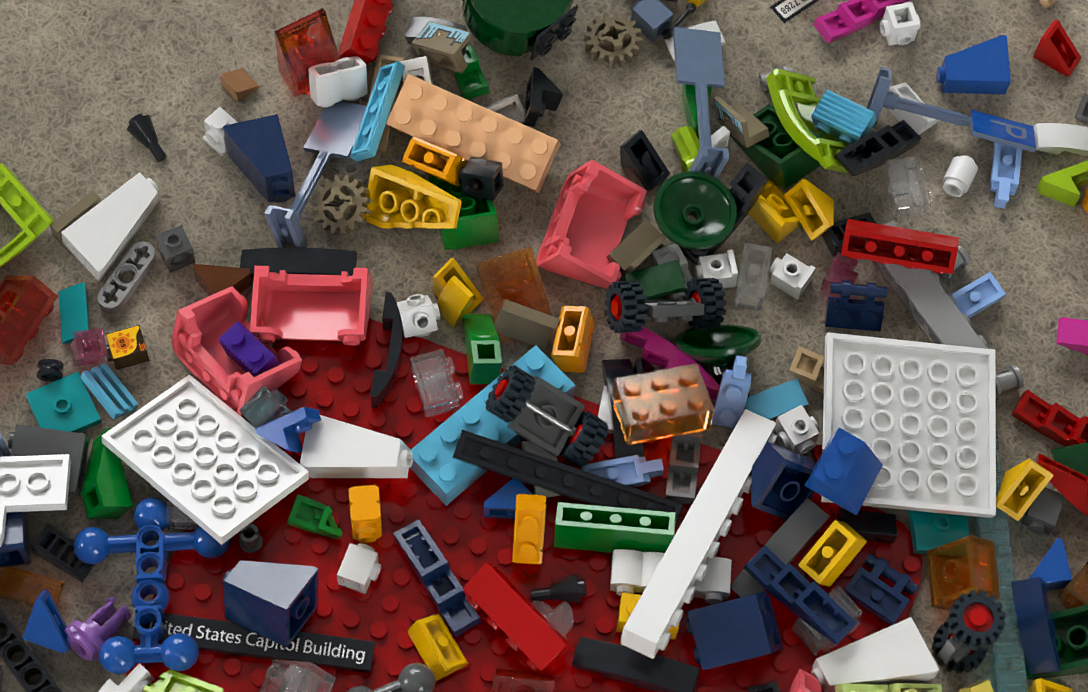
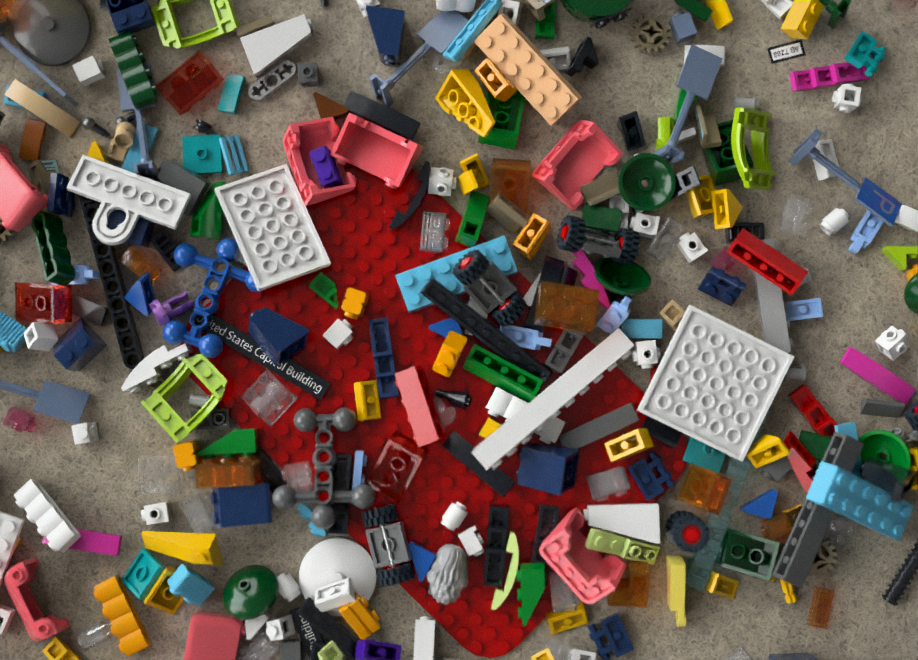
camera: 30 degrees right, 20 degrees up
(88, 347) = (229, 122): clear pink brick -> none
(126, 347) = (254, 130): brick -> none
(250, 539) = (283, 293): dark grey pin -> none
(265, 407) = (321, 209): clear light blue brick -> none
(286, 428) = (326, 232): slope -> none
(350, 213) = (418, 92): dark tan gear -> none
(351, 451) = (359, 257): white slope -> none
(481, 178) = (519, 105): black brick -> none
(690, 8) = (688, 43): black hinge -> none
(780, 481) = (620, 386): dark blue slope -> none
(800, 596) = (596, 464): dark blue slope -> none
(842, 118) = (774, 153): medium azure brick -> none
(845, 471) = (657, 400): blue slope -> none
(877, 148) = (788, 183): black slope -> none
(977, 69) = (884, 150): blue slope -> none
(1036, 625) = (734, 538): dark blue slope -> none

